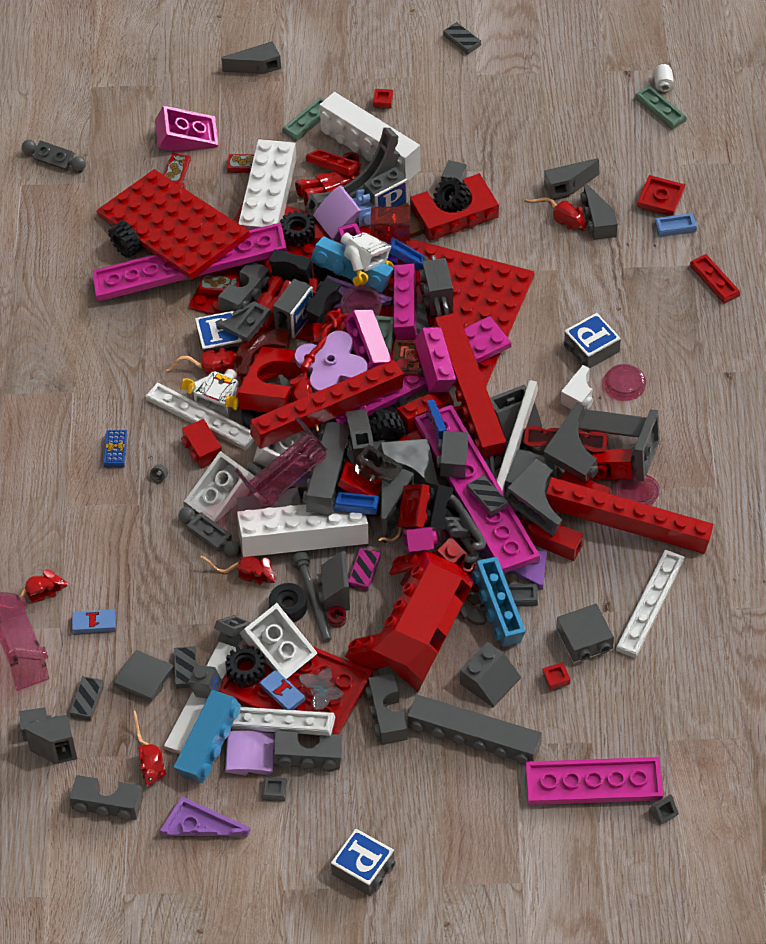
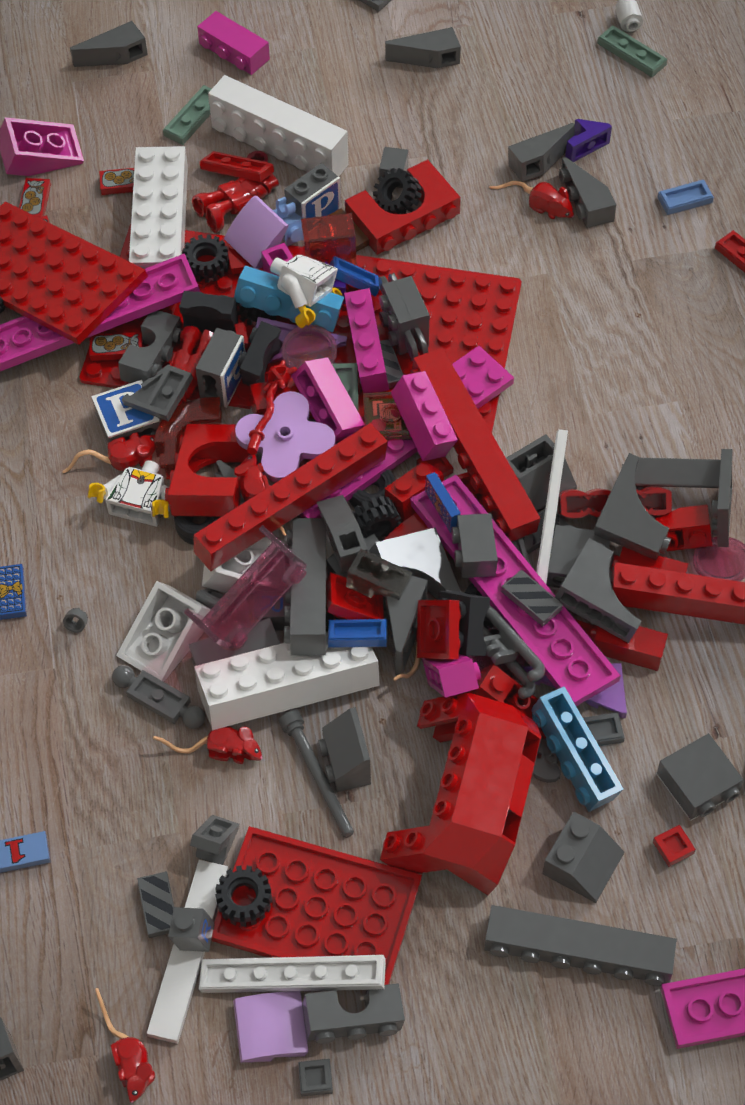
camera: 10 degrees left, 5 degrees up
(86, 698) = (24, 973): dark grey tile -> none
(143, 675) = (100, 927): dark grey slope -> none
(193, 412) = (119, 530): white tile -> none
(201, 443) = (127, 569): red brick -> none
(207, 736) = (208, 1015): dark azure brick -> none
(279, 641) = (284, 852): white slope -> none
(282, 691) = (302, 926): medium blue tile -> none
(293, 592) = (282, 771): black tyre -> none
(321, 688) = (358, 912): clear light blue piece -> none
(336, 623) = (363, 802): dark red bush -> none
(348, 66) = (233, 42): none -> dark pink brick
(364, 569) = (380, 721): dark pink tile -> none
(382, 161) = (304, 156): dark grey arch -> none
(383, 98) = (284, 77): red plate -> none
(390, 724) = (460, 954): dark grey arch -> none
(499, 88) = (426, 49): none -> dark grey slope
(578, 390) = (614, 435): white arch -> none
(592, 341) = (616, 362): piece -> none
(609, 171) = (587, 139): none -> dark purple slope
(624, 382) = (669, 413): clear pink piece -> none
(661, 195) = (659, 162): red plate -> none

